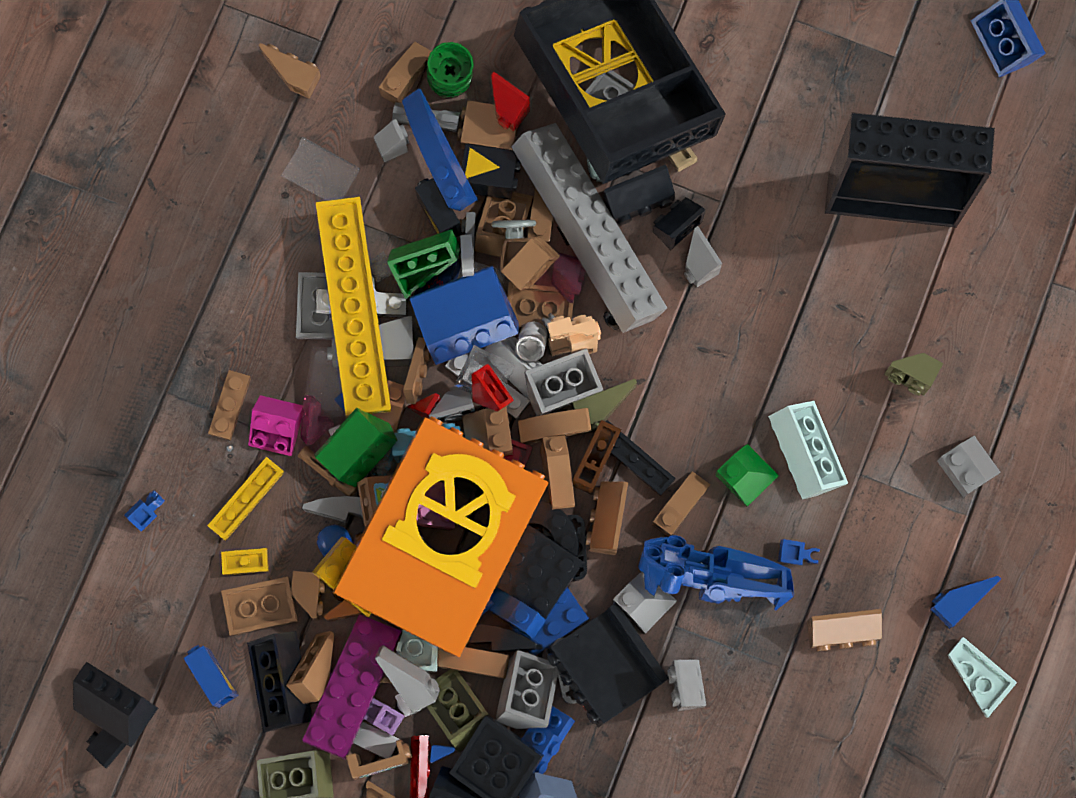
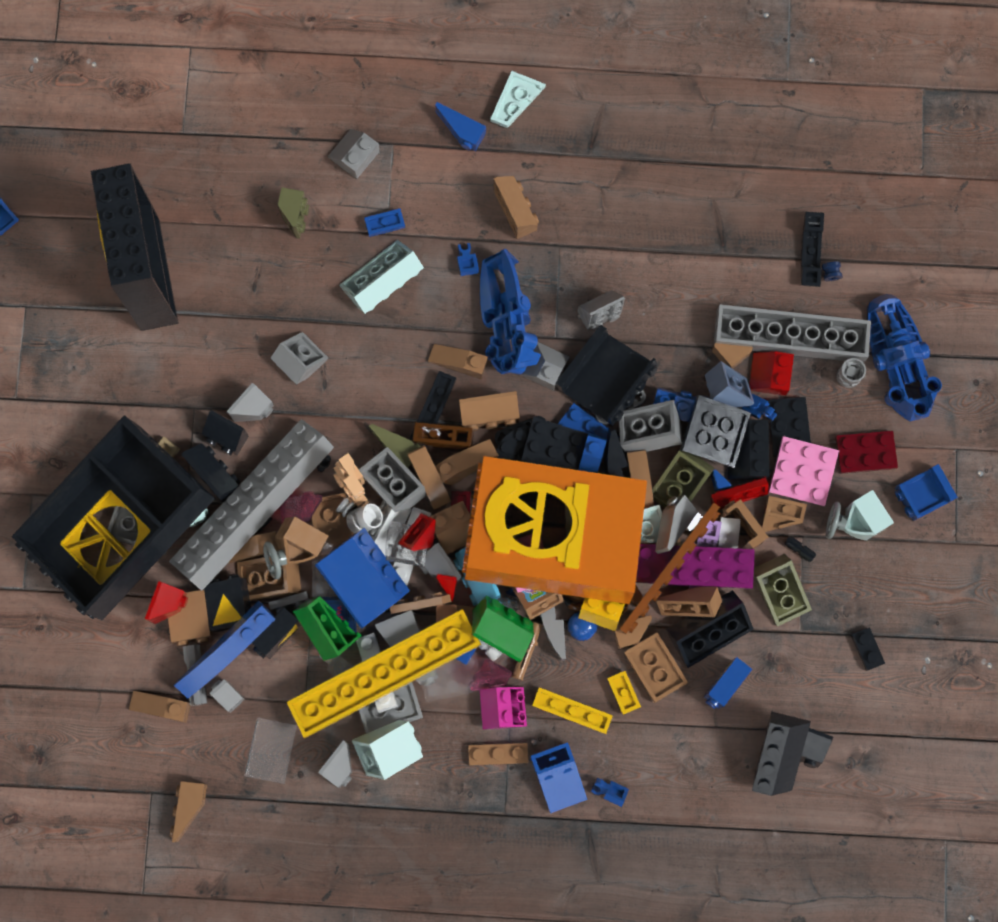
camera: 115 degrees left, 0 degrees up
(181, 459) = (558, 777): none -> slope
(273, 289) = (388, 749): none -> light aqua slope
(275, 233) = (338, 766): none -> light grey slope
(360, 663) = (676, 562): none -> dark orange plate
(449, 58) = (140, 658): green wheel -> none
(467, 255) = (311, 590): light grey beam -> none
(741, 329) = (298, 357): none -> light grey slope
(746, 475) = (416, 318): green slope -> none
(872, 474) = (384, 222): none -> blue plate

